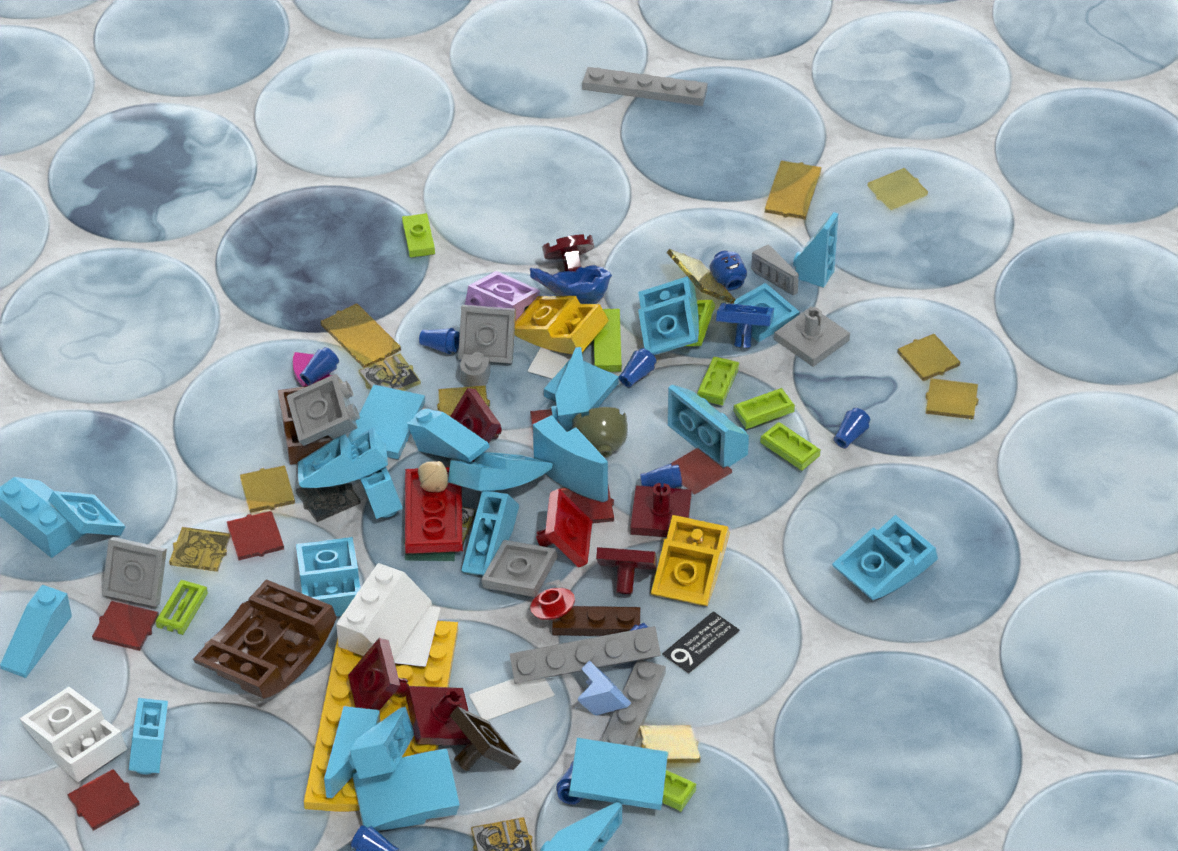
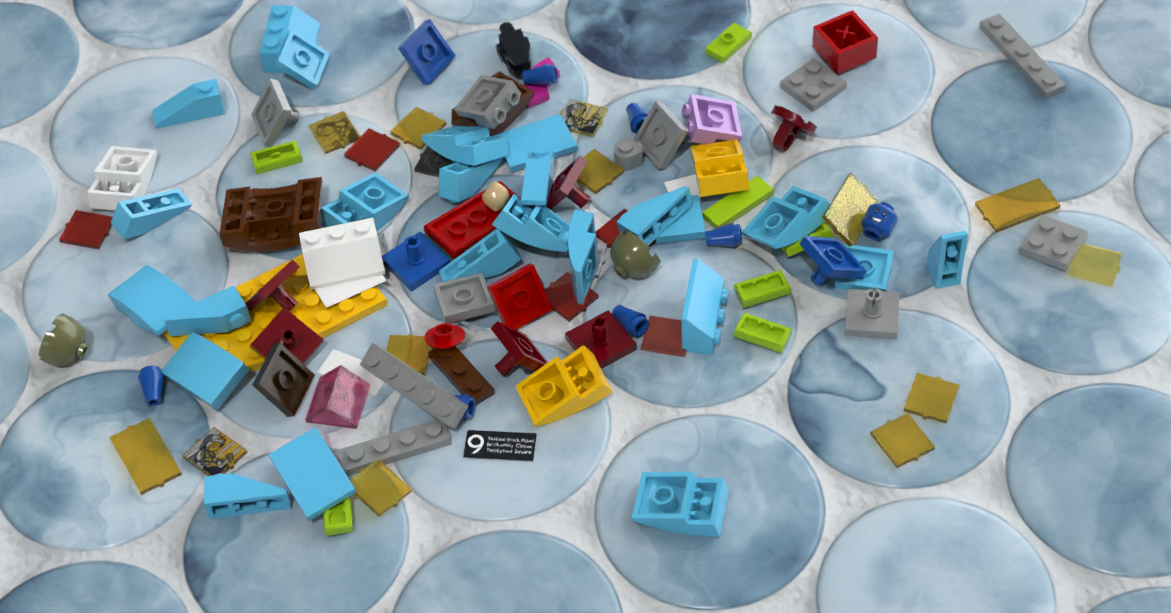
camera: 55 degrees right, 5 degrees up
(125, 625) = (237, 142): clear red piece -> none
(191, 423) = (426, 51): none -> blue tile
(262, 365) = (514, 49): none -> black hinge
(272, 788) = (148, 298): none -> medium azure slope
(360, 335) = (603, 79): clear yellow piece -> none
(382, 746) = (217, 327): medium azure slope -> none
(436, 576) = (415, 261): none -> blue tile
(515, 165) = (845, 42): none -> red brick
(528, 637) = (410, 350): none -> clear yellow piece
(530, 217) = (813, 85): none -> light grey plate
(534, 721) = (338, 399): none -> clear pink slope
(585, 283) = (758, 147): blue hair -> none
(602, 694) = (391, 414): light blue slope -> none
(774, 268) = (913, 242): light grey slope -> none
(790, 446) = (740, 372): lime plate -> none
(853, 425) = (798, 396): blue cone -> none
(854, 194) = (1053, 242): none -> light grey plate

